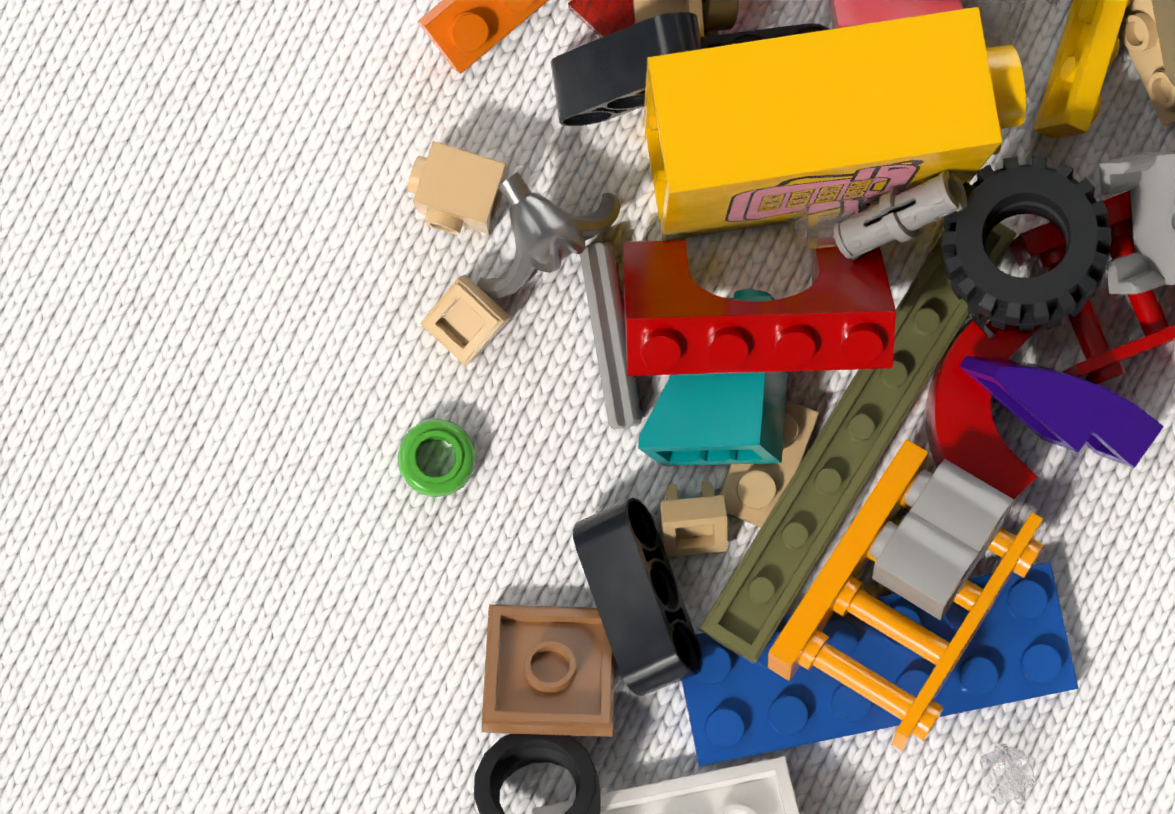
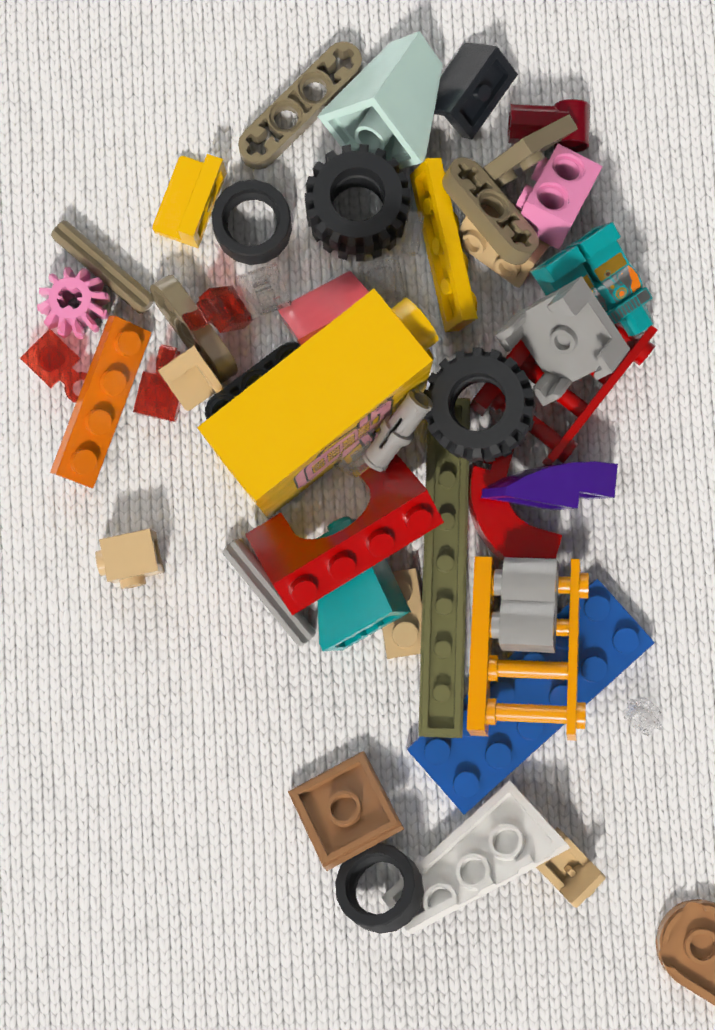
camera: 35 degrees left, 0 degrees up
(436, 430) = (226, 722): bright green piece -> none
(465, 320) = (178, 632): tan tile -> none
(544, 234) = (196, 557): flat silver piece -> none
(610, 73) = (178, 442): black beam -> none
(637, 597) = (372, 738): black beam -> none
(694, 524) = (380, 675): tan tile -> none

